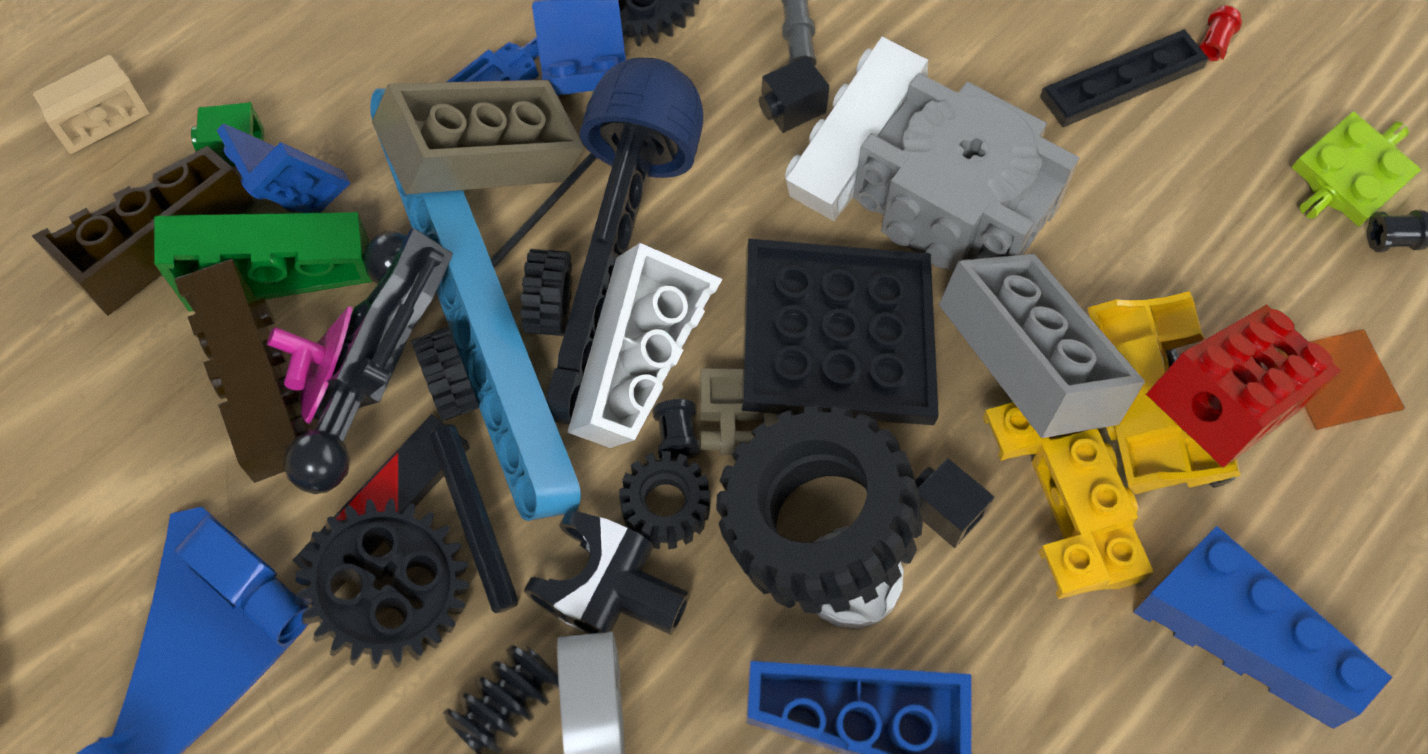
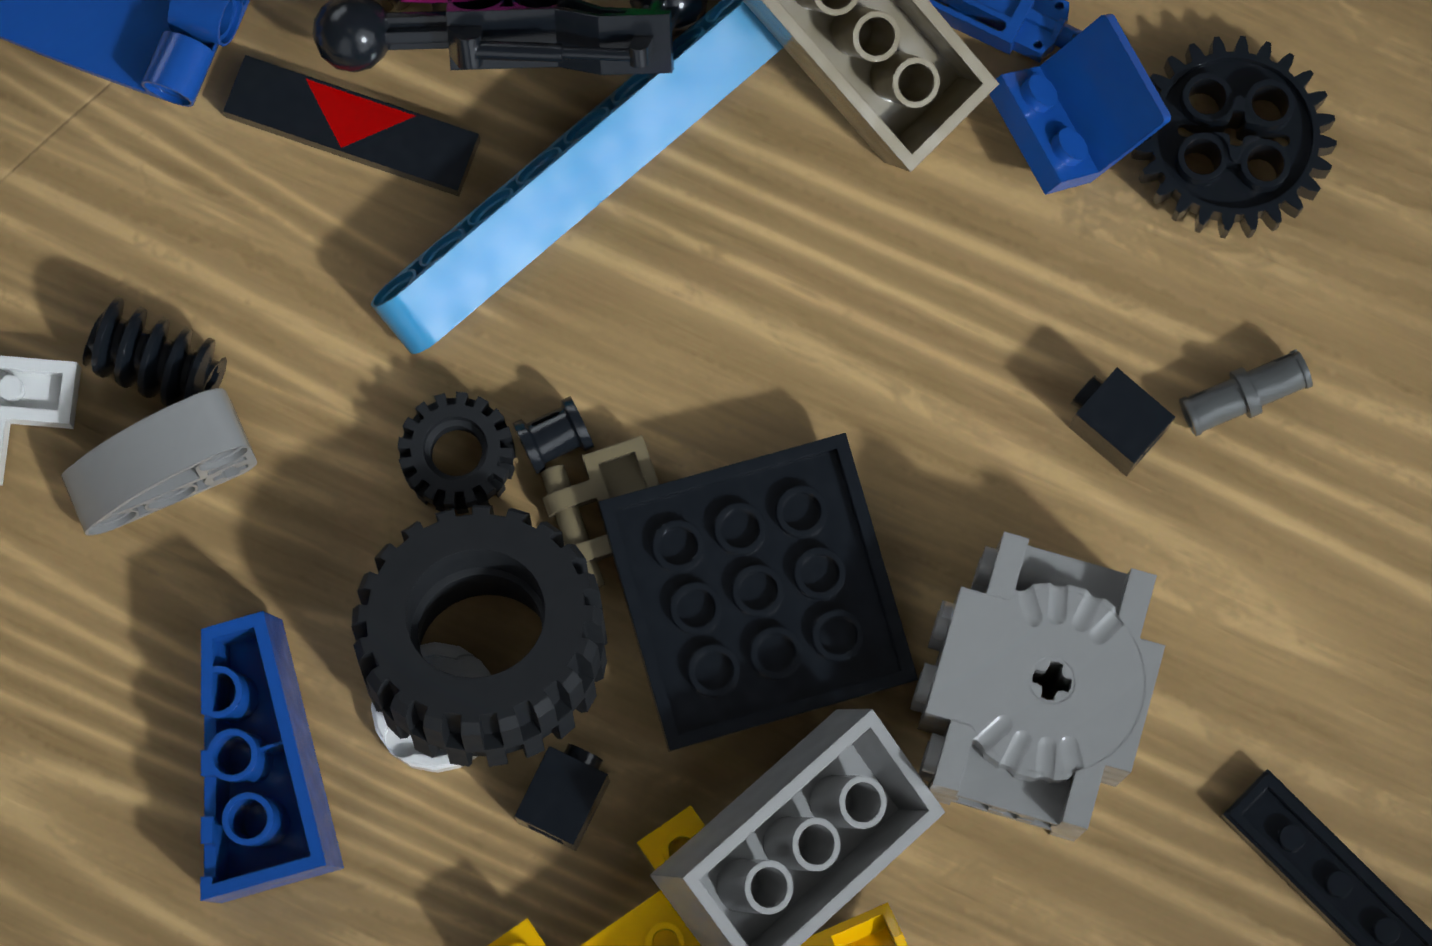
camera: 70 degrees right, 15 degrees up
(353, 620) = (187, 157): black gear -> none
(444, 374) = (521, 126): black tyre -> none
(474, 519) = (360, 237): black axle -> none
(542, 210) = (839, 156): black piece -> none
(546, 292) = (678, 206): black tyre -> none
(610, 581) = (332, 425): black connector -> none
(637, 340) = (648, 344): white wedge -> none
(644, 125) = (979, 232): piece -> none
(829, 165) = (1080, 520): white wedge -> none

